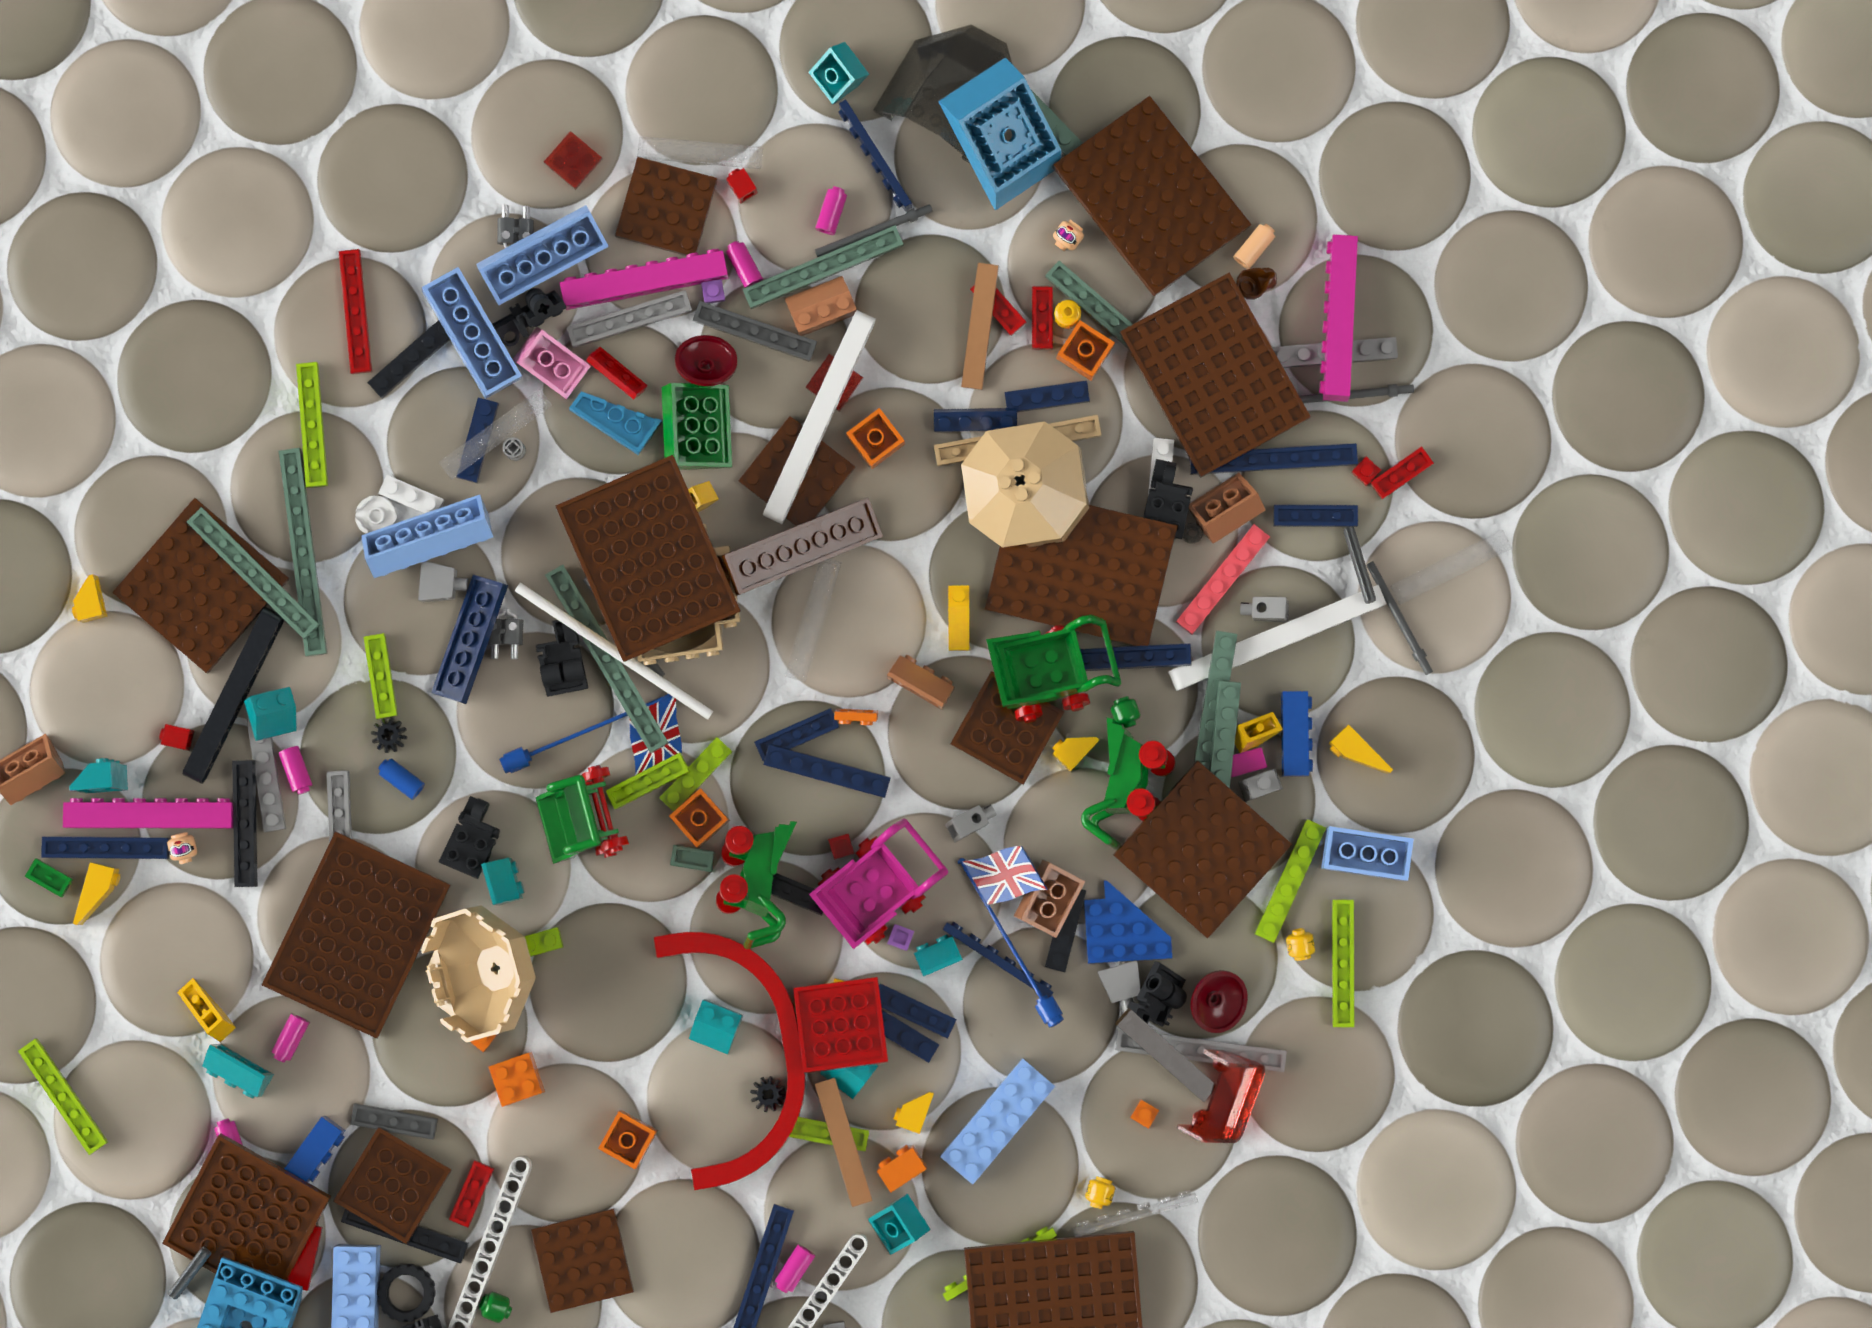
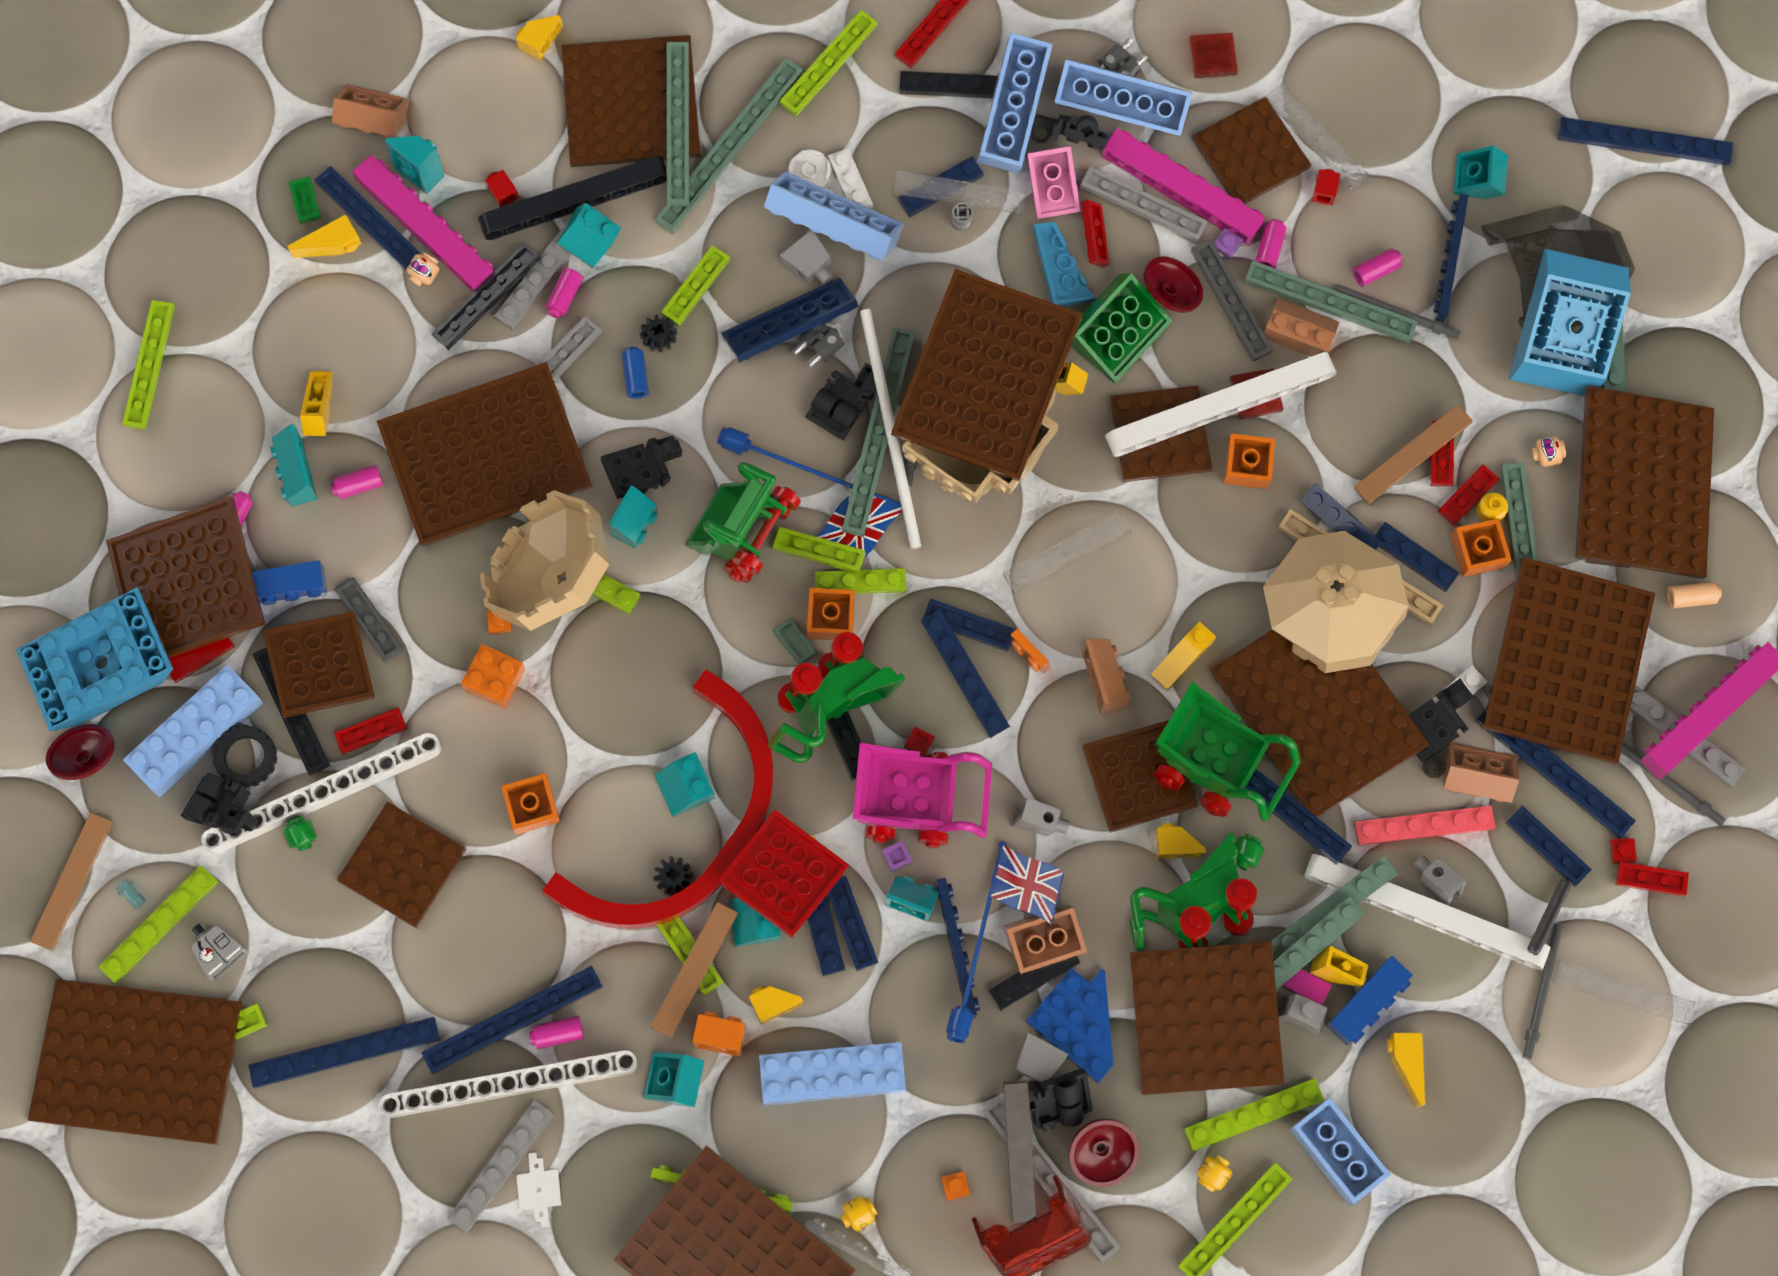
camera: 35 degrees right, 10 degrees down
(189, 1273) = (102, 581): dark grey axle -> none
(801, 546) = (1113, 482): plate -> none
(1256, 281) = (1669, 621): reddish brown hair -> none

